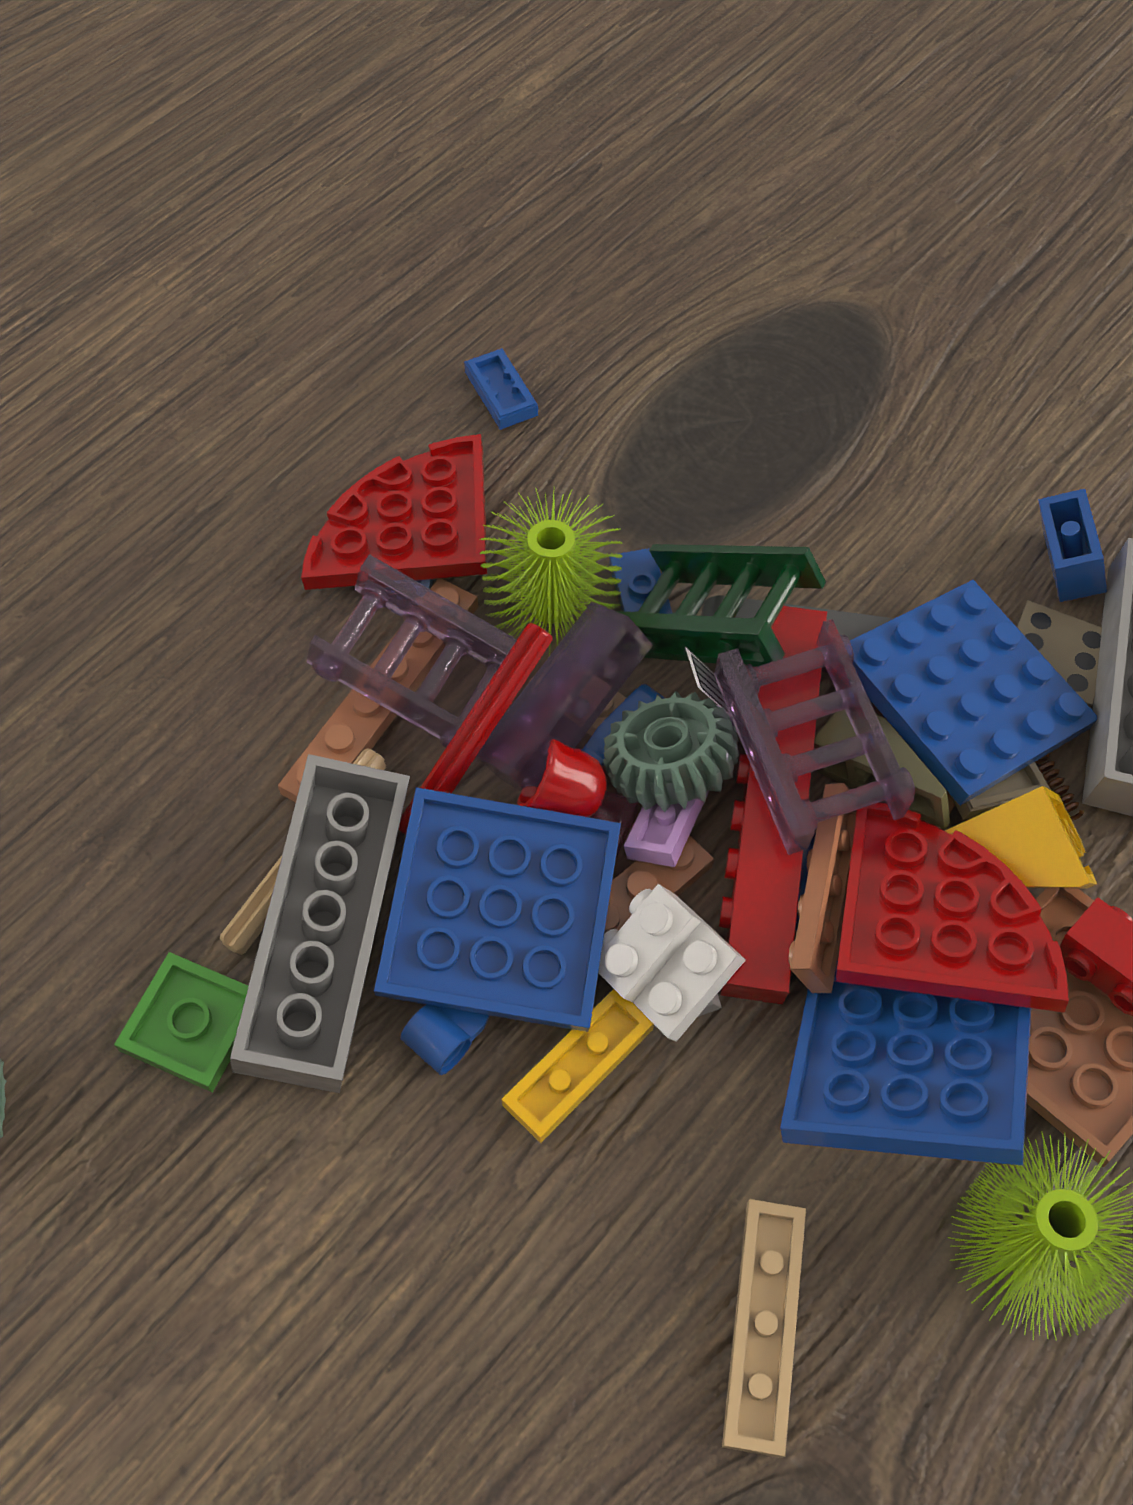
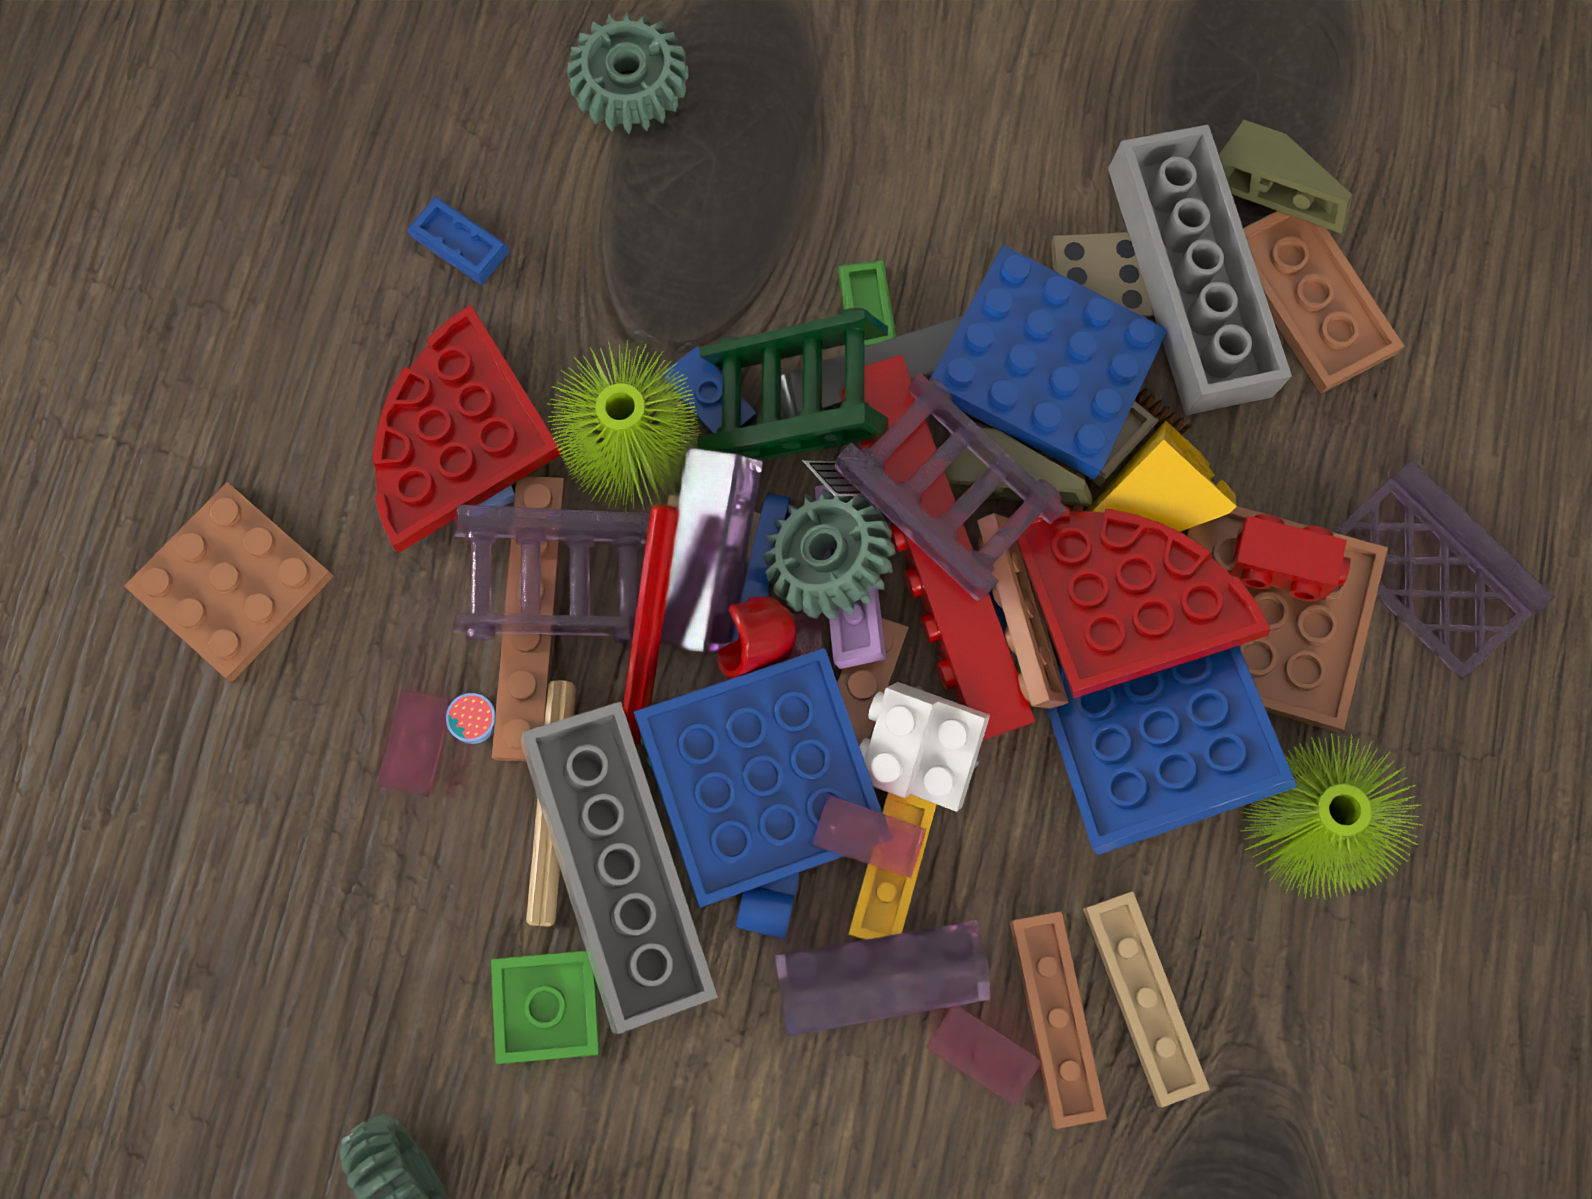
camera: 30 degrees left, 15 degrees up
(158, 553) = (229, 582): none -> nougat plate
(222, 745) = (414, 743): none -> clear pink plate
(280, 747) = (471, 718): none -> tile
(509, 1154) = (883, 977): none -> clear purple brick
(568, 1011) = (869, 836): none -> clear pink plate
(569, 1289) = (983, 1054): none -> clear pink plate
(661, 1300) = (1058, 1020): none -> nougat plate
(713, 327) = (624, 47): none -> sand green gear
(836, 568) = (867, 288): none -> bright green tile
(1073, 545) = (1071, 163): blue brick -> none

